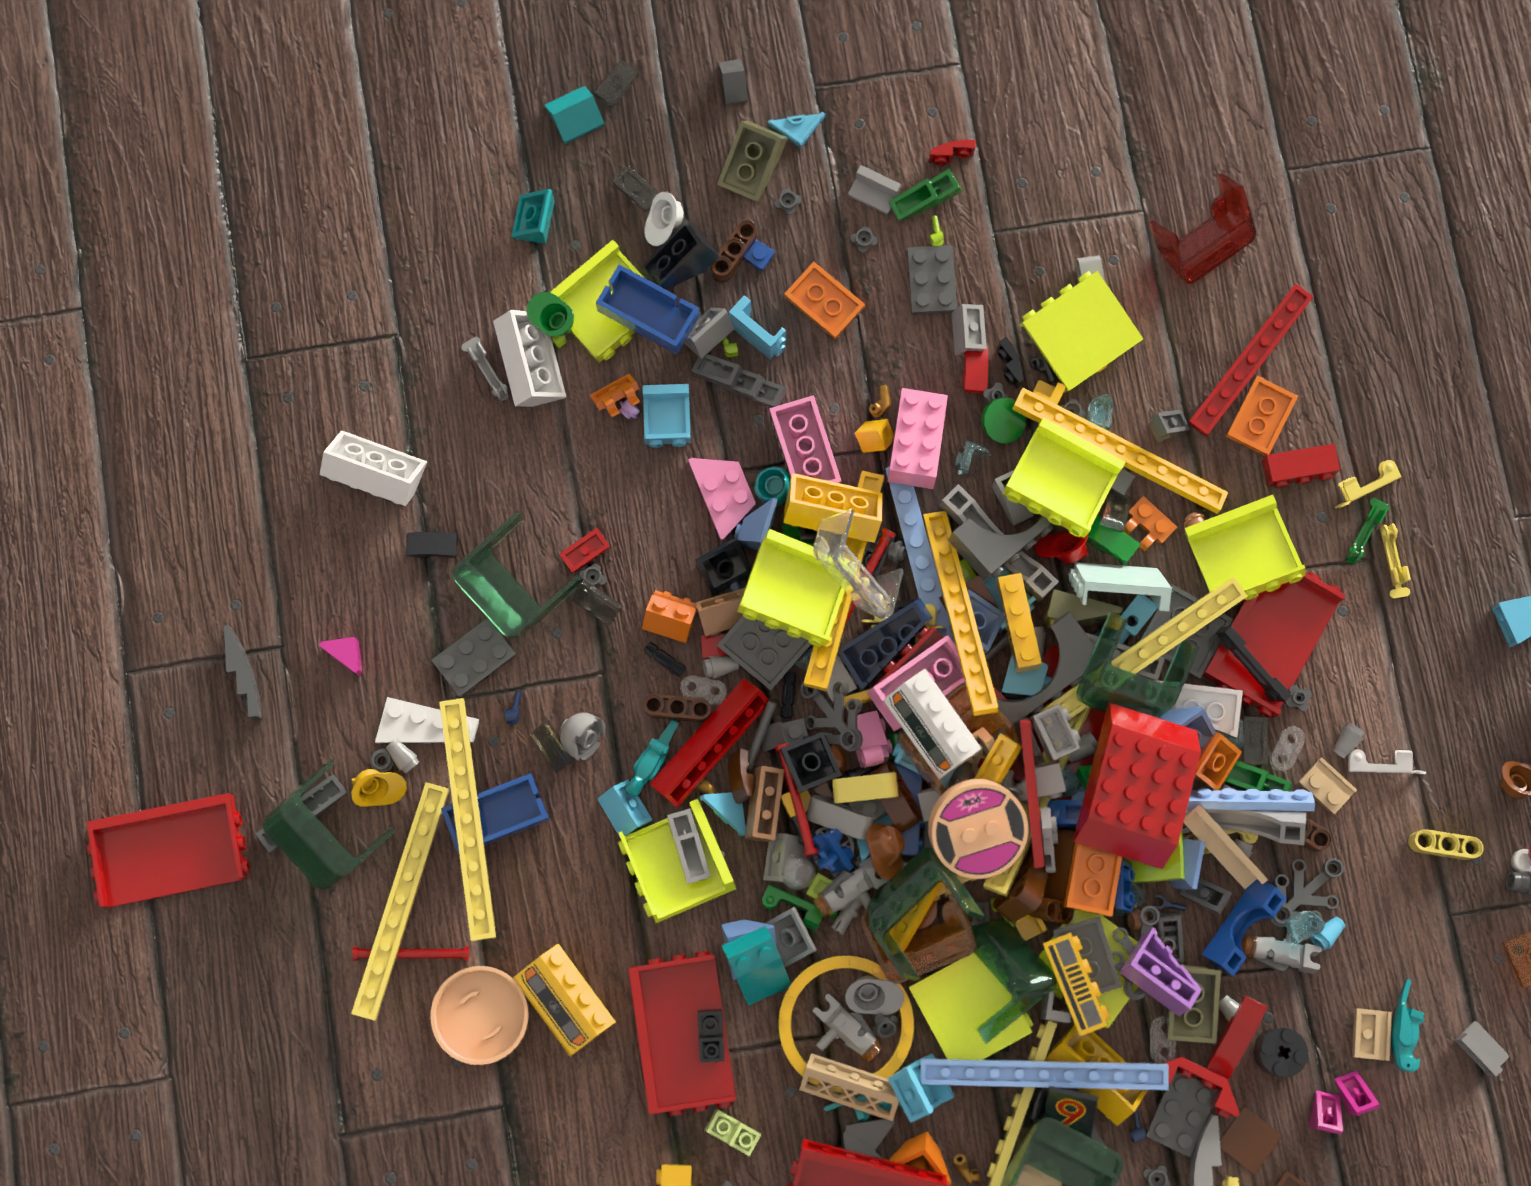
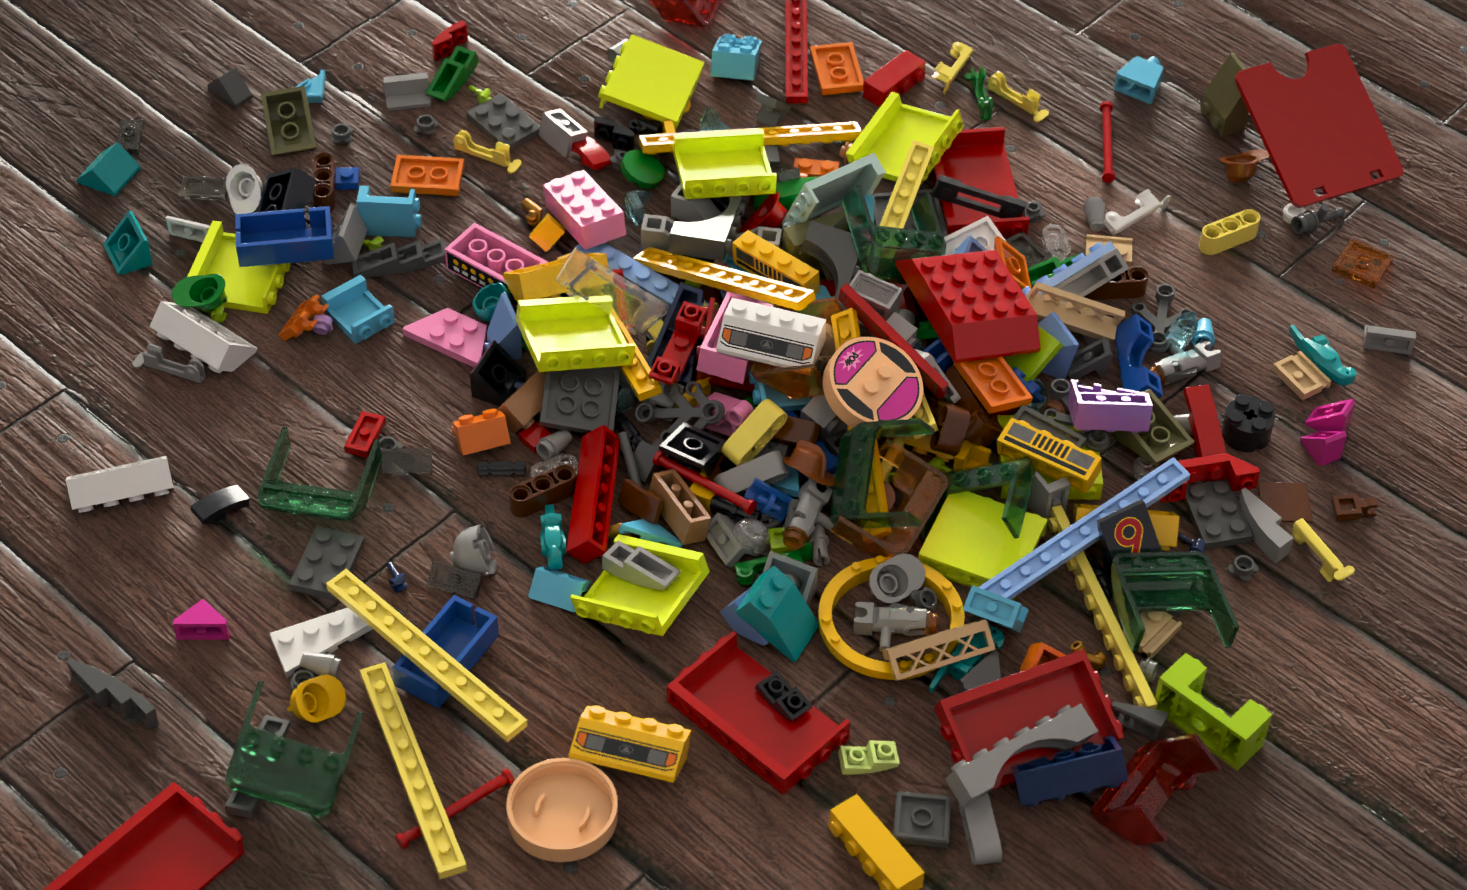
camera: 35 degrees left, 30 degrees down
(595, 227) = (186, 228): none -> white slope
(864, 664) = (681, 345): none -> red slope
(898, 316) = (499, 156): none -> light yellow piece
(1184, 341) = (735, 57): none -> medium azure slope
(1399, 703) = (1108, 175): none -> red bar

